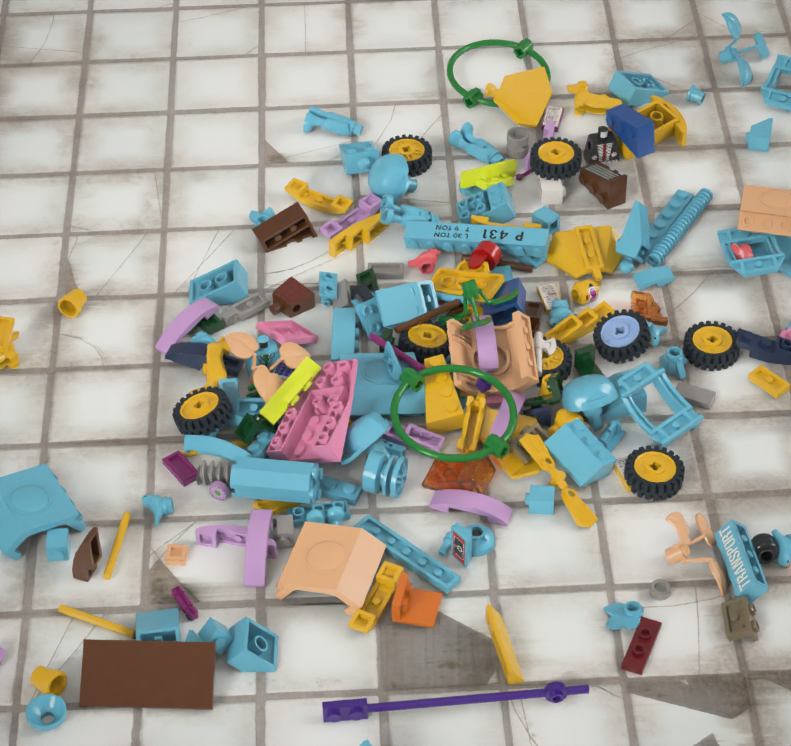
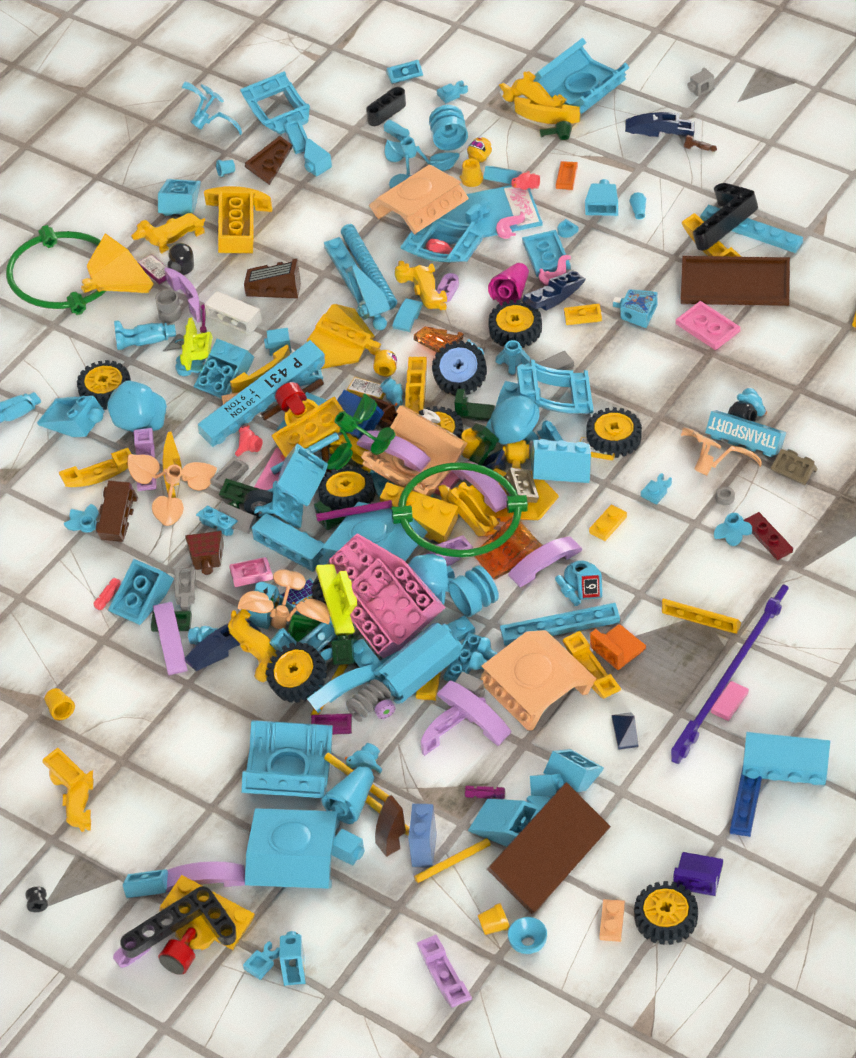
camera: 50 degrees left, 5 degrees up
(94, 581) = (422, 835): none -> medium blue brick
(108, 513) = (349, 795): none -> medium azure cone
(116, 462) = (288, 759): none -> medium azure panel
(135, 514) = (347, 770): none -> yellow bar
(176, 554) = (426, 773): light nougat tile -> none
(200, 270) = (107, 594): none -> coral axle
(329, 663) = (625, 730): none -> dark blue slope
(336, 220) = (170, 509): none -> light nougat plant
(392, 361) = (370, 516): medium azure slope -> none
(404, 213) = (184, 423): medium azure piece -> none
(423, 720) = (729, 700): none -> bright pink tile
(426, 316) = (327, 471): reddish brown bar -> none
(483, 385) = (436, 479): dark purple hose -> none
(540, 499) = (580, 513): medium azure brick -> none
(552, 525) = (608, 522): none -> yellow plate
(555, 158) = (223, 291): black wheel -> none
(574, 123) = (183, 255): none -> black helmet
(579, 510) = (573, 490): yellow piece -> none
(601, 147) = (231, 259): black torso -> none
(619, 538) = (657, 490): none -> medium azure plate
(632, 129) = (244, 223): blue wedge -> none
(695, 268) = (424, 284): none -> yellow animal
(709, 285) = (450, 288): none -> lavender beam
(732, 113) = (269, 160): none -> reddish brown wing
(751, 315) = (509, 284): none -> dark pink cone
(774, 110) = (296, 135): none -> medium azure tile

